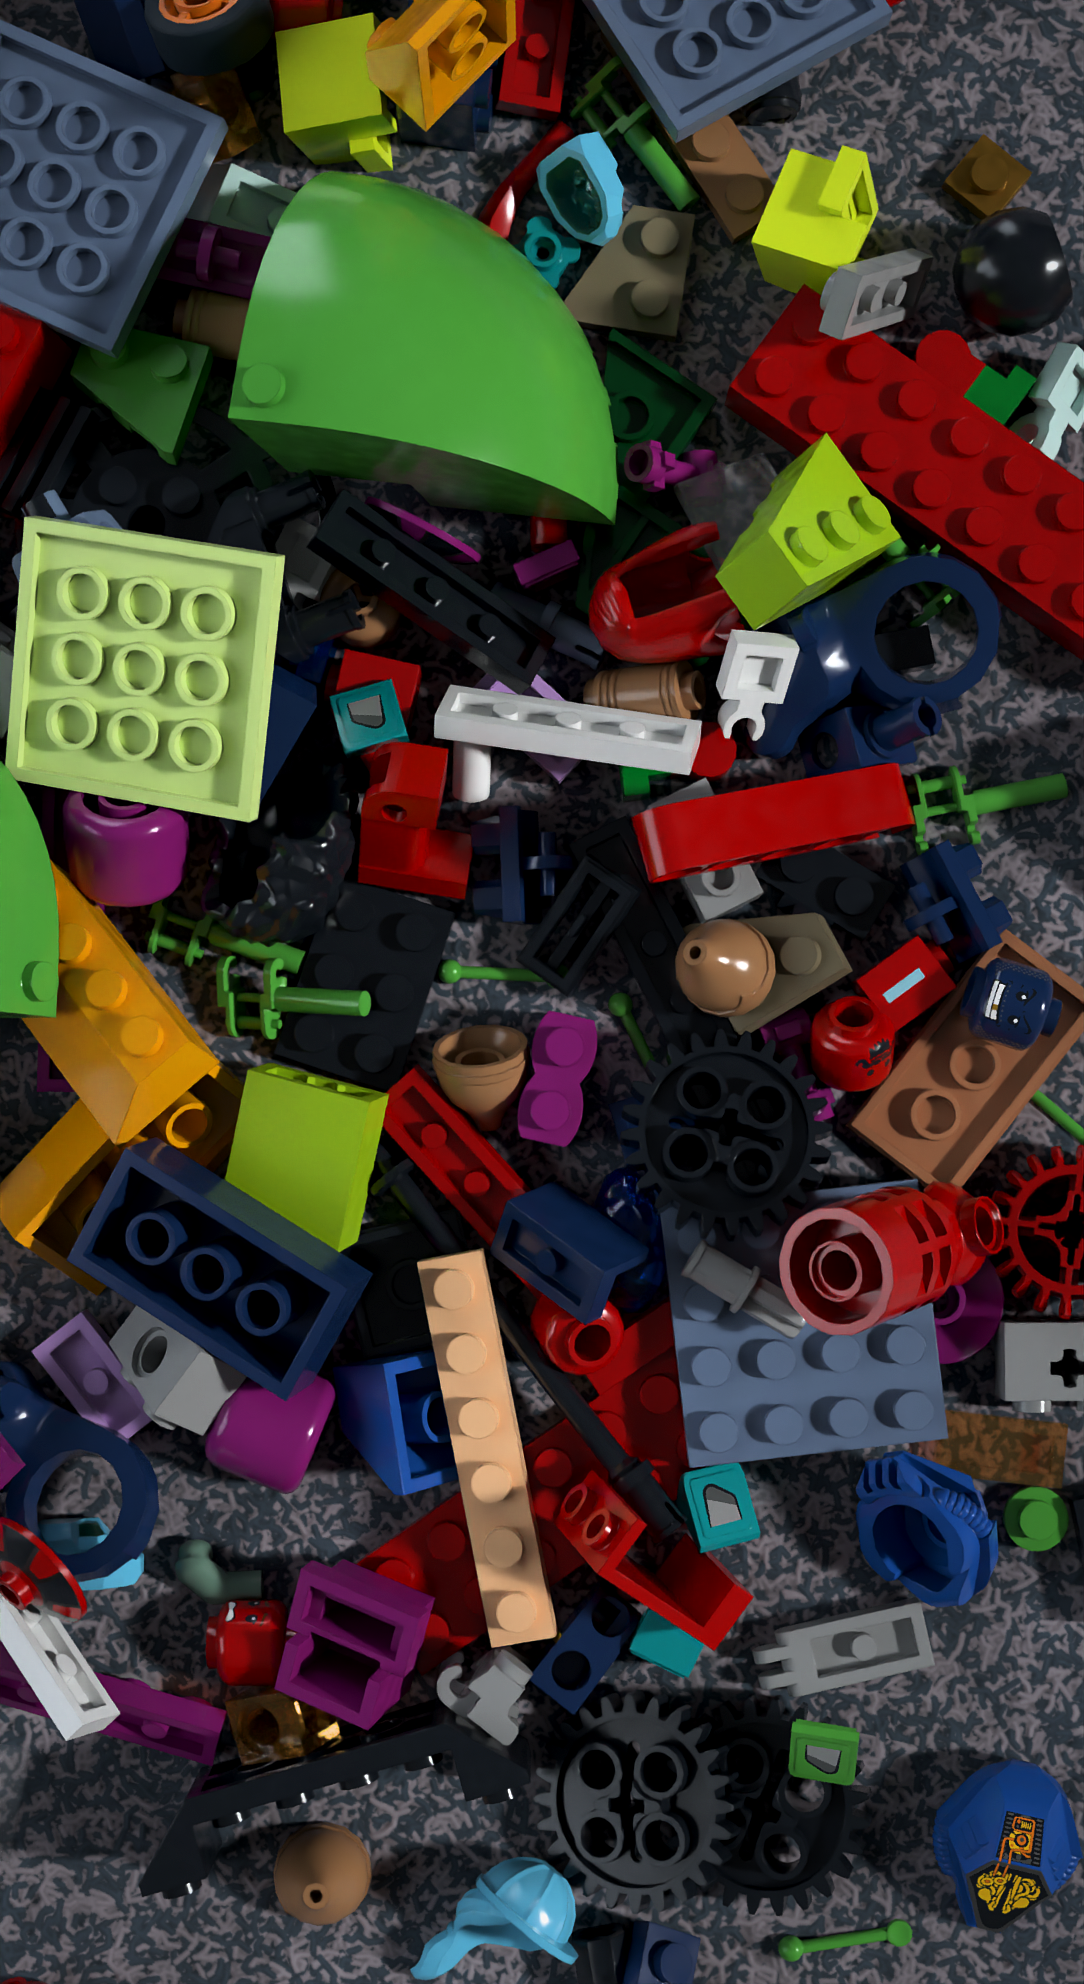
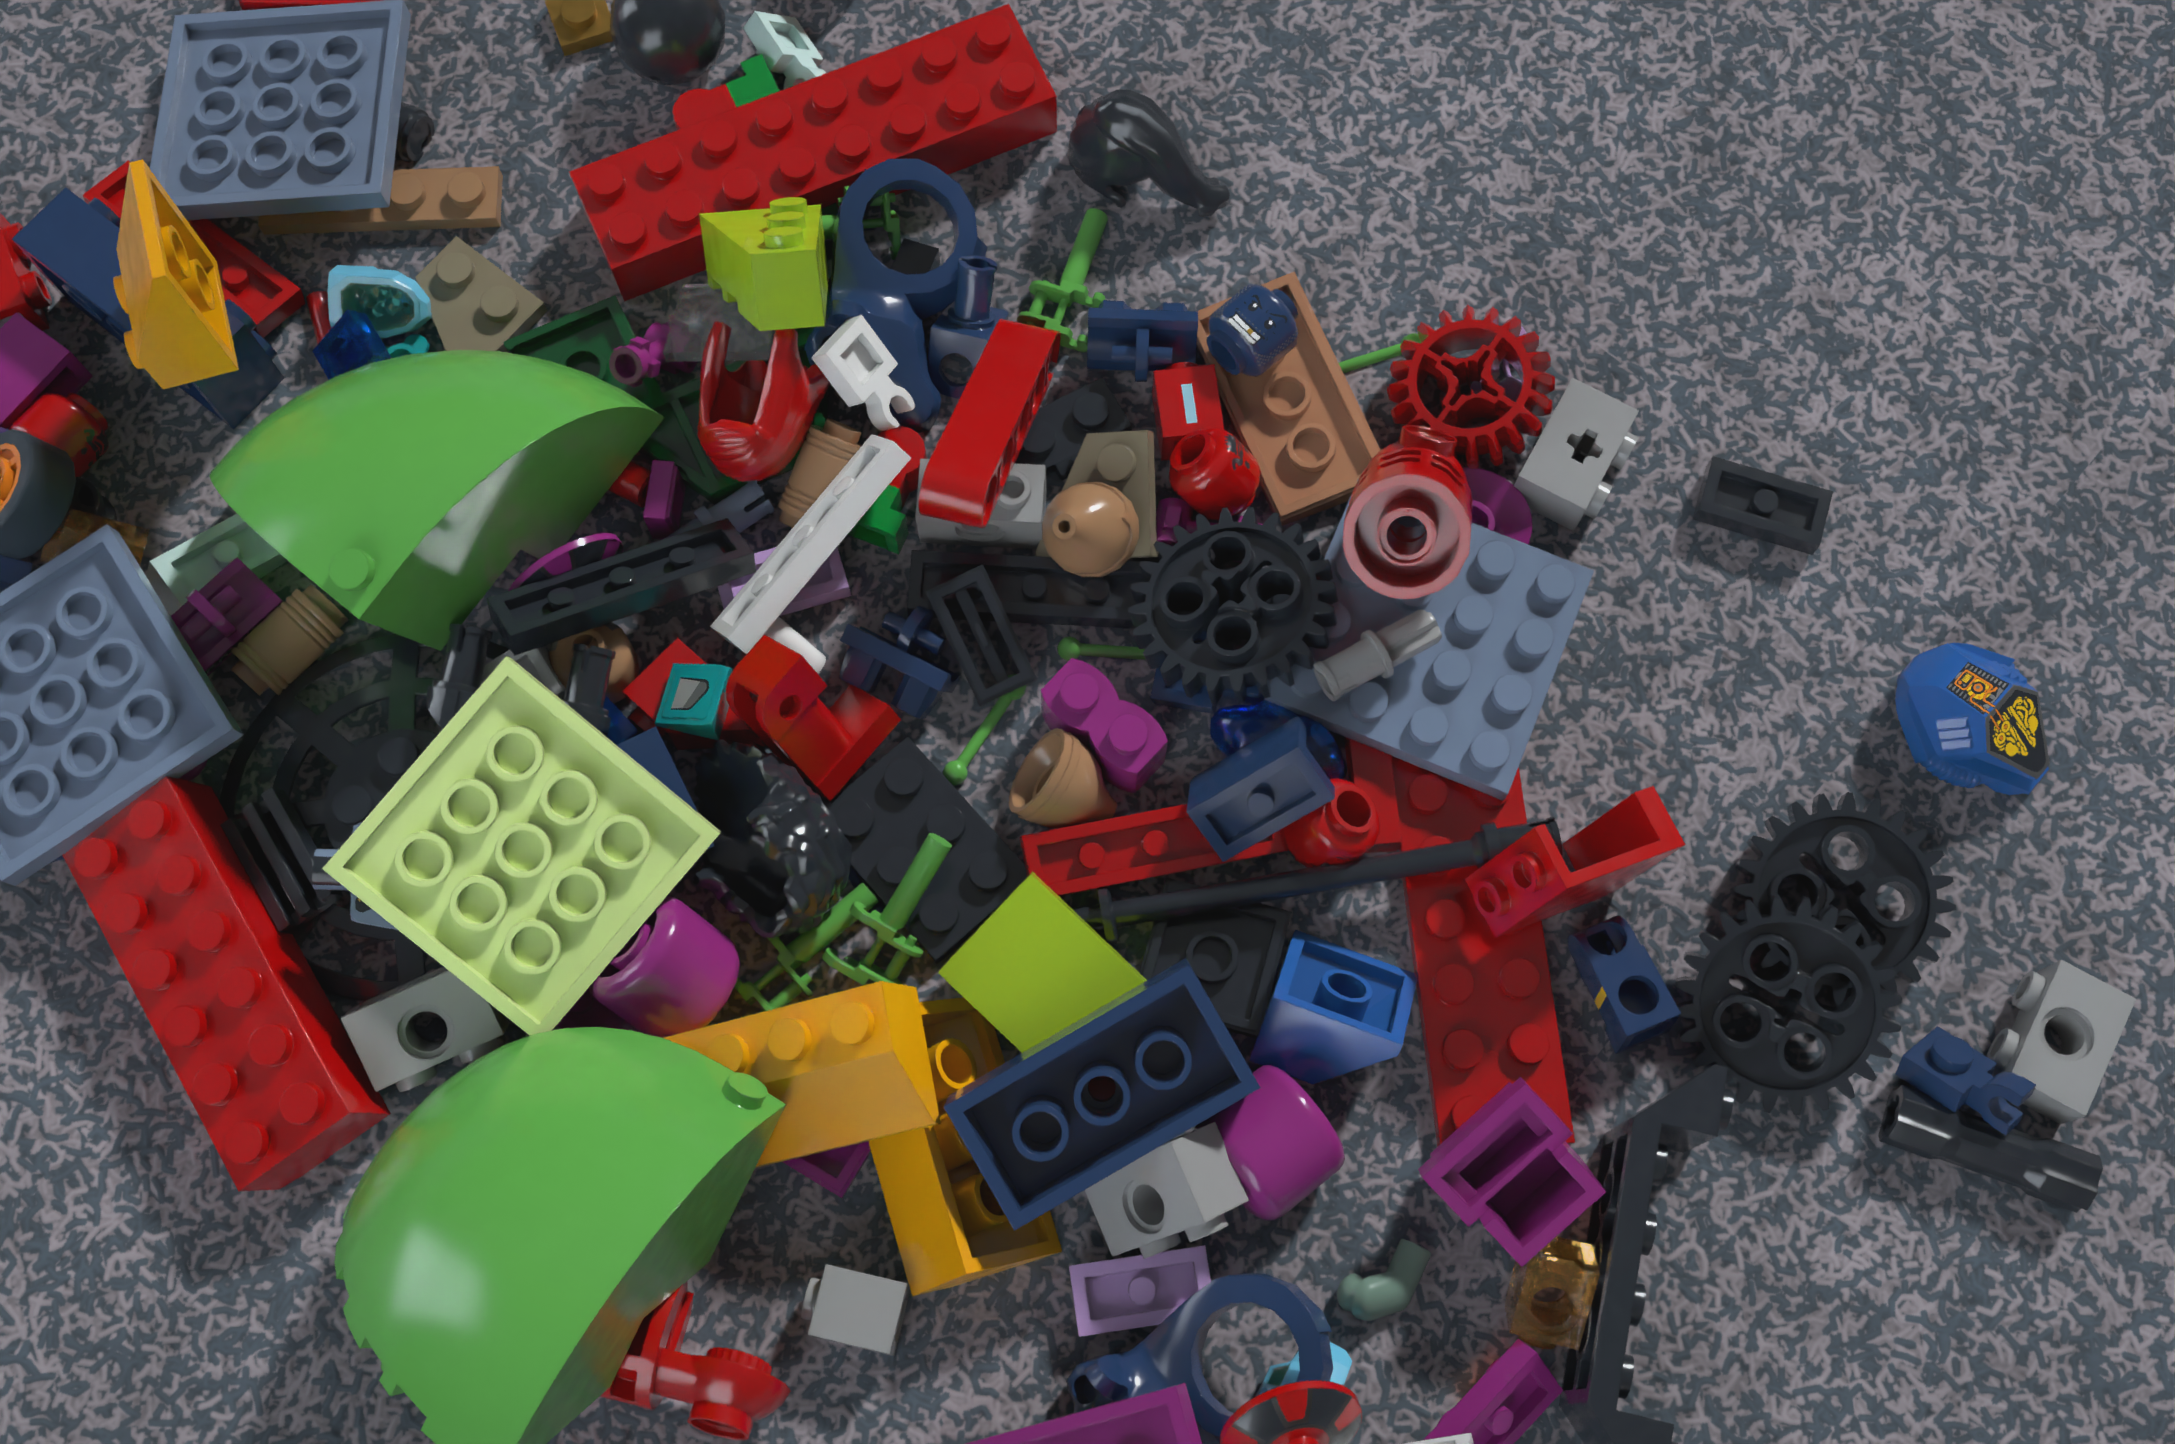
camera: 60 degrees left, 15 degrees down
(149, 386) = (284, 735): bright green wing -> none
(248, 1641) = (1465, 1279): red head -> none
(322, 1873) = (1716, 1343): medium nougat helmet -> none
(328, 97) = (152, 434): neon yellow plate -> none
(487, 1448) = (1399, 958): light nougat plate -> none
(490, 1693) = (1617, 1078): light grey piece -> none
(515, 1906) = (1835, 1170): medium azure piece -> none
(519, 204) = (350, 345): none -> clear blue plate
(635, 135) = (360, 243): bright green piece -> none
(664, 1644) = (1653, 899): teal slope -> none
(717, 1506) = (1554, 791): teal slope -> none
(815, 219) = (531, 139): neon yellow plate -> none
(823, 1752) = (1820, 808): bright green slope -> none
(847, 1648) = (1735, 759): light grey hinge -> none
(873, 293) = (610, 119): light grey plate -> none
(897, 1932) = (2009, 857): bright green hinge -> none
(925, 1528) = (1663, 631): blue helmet -> none
(1004, 1448) = (1625, 546): clear orange tile -> none
(1035, 1518) = (1697, 551): bright green plate -> none

